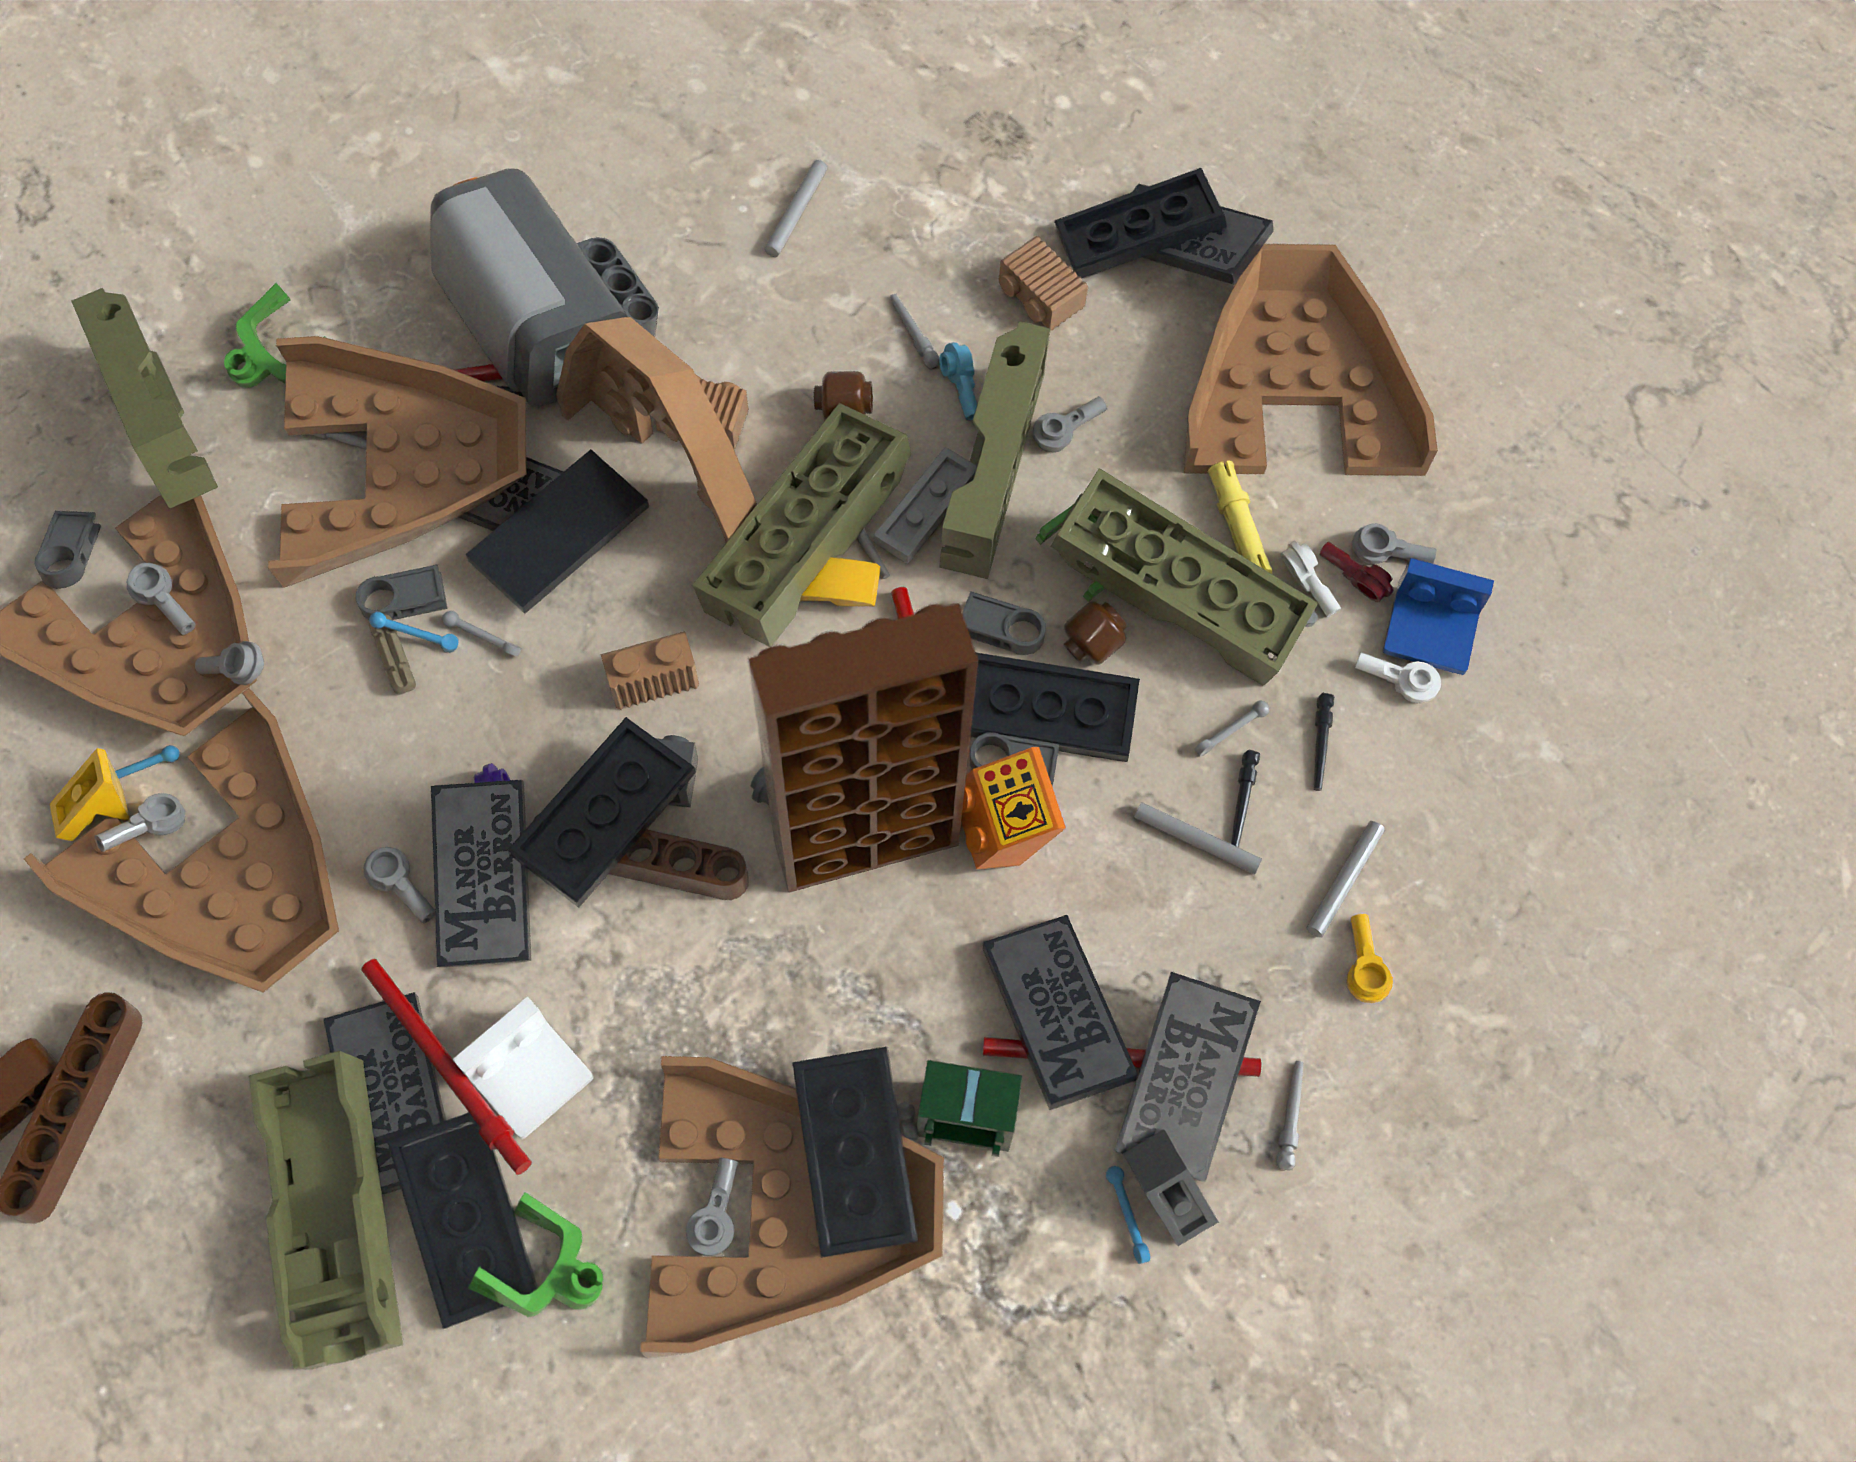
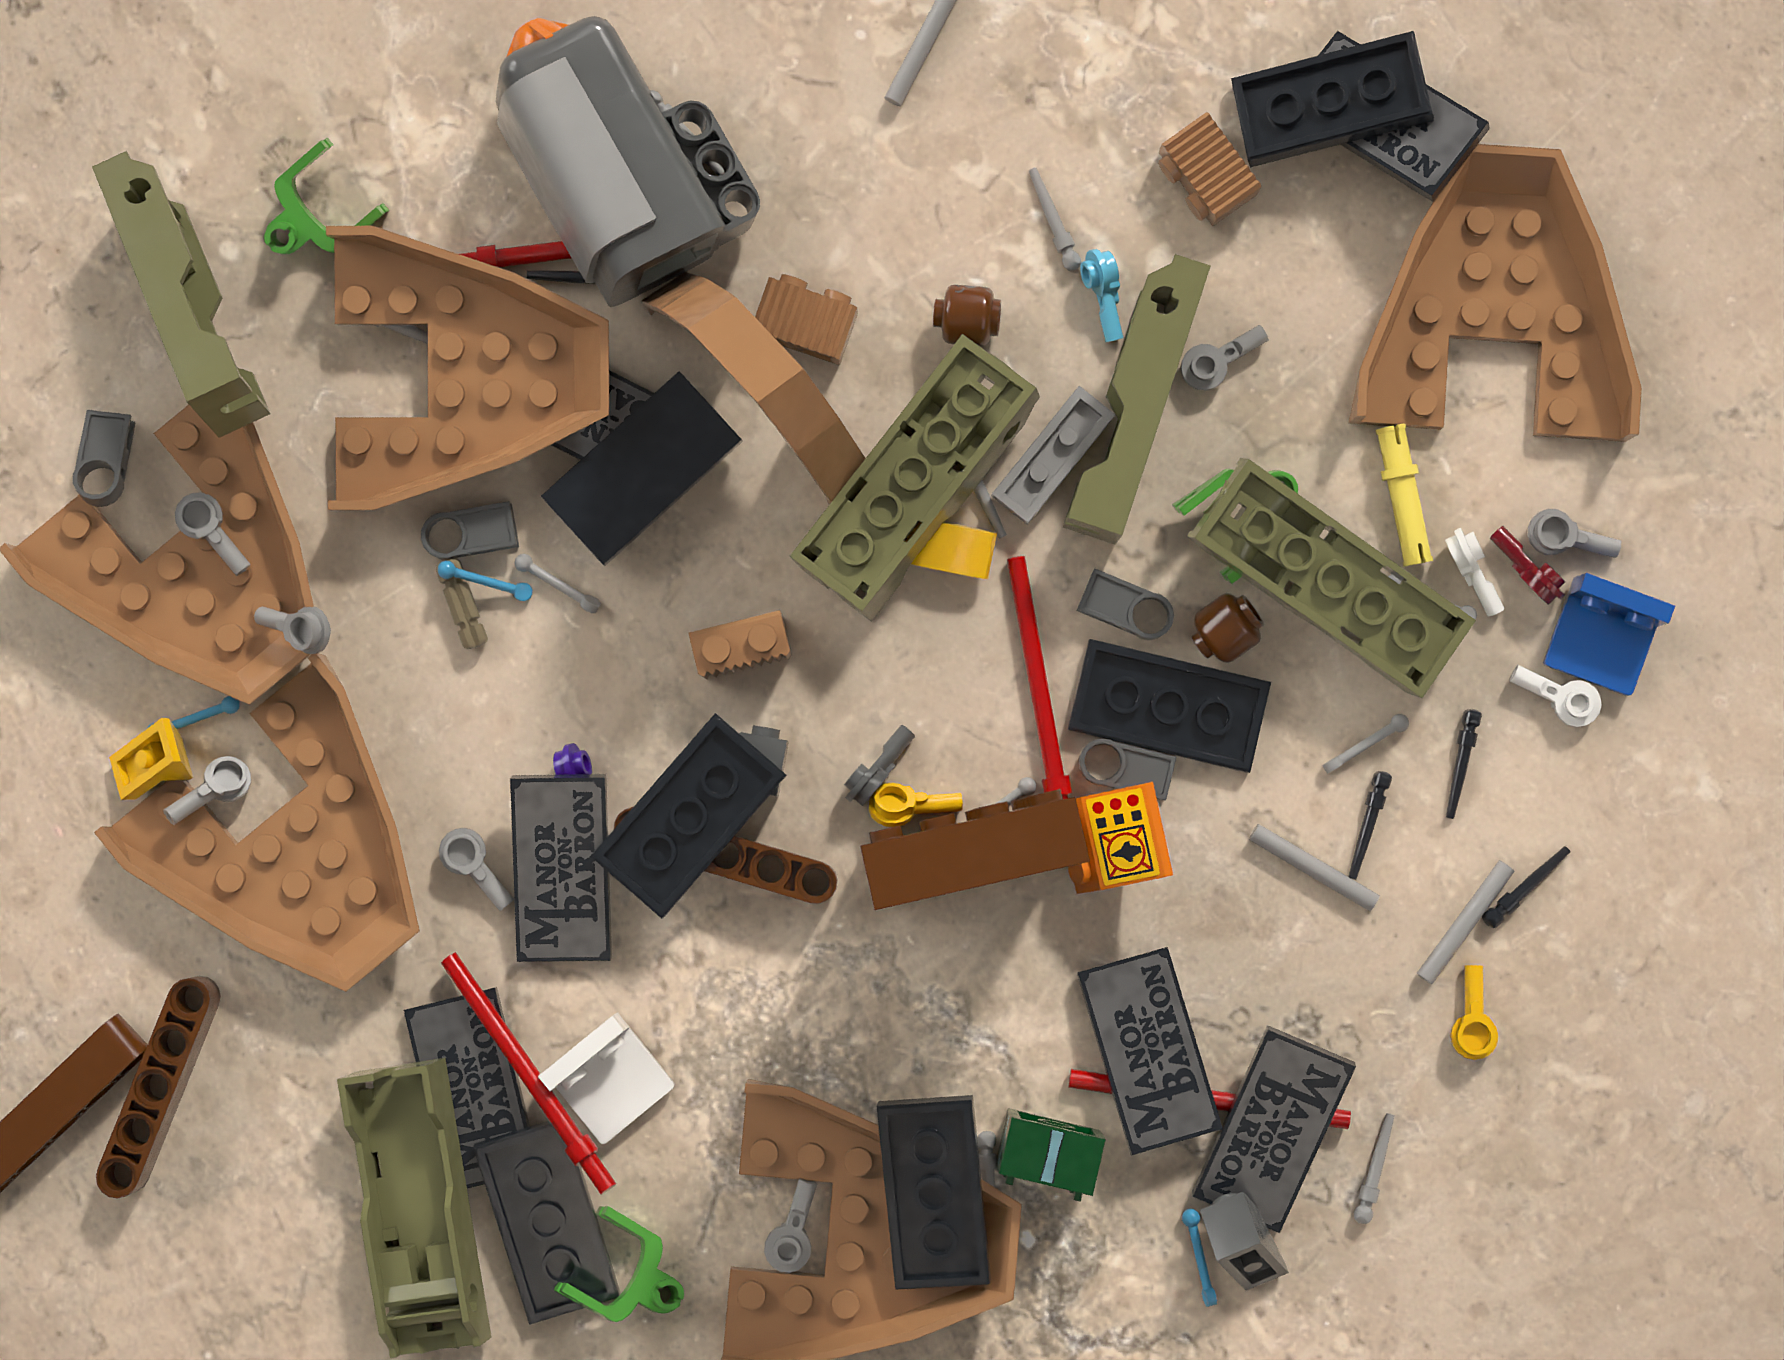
camera: 10 degrees right, 20 degrees up
(1385, 857) = (1510, 901): none -> black piece

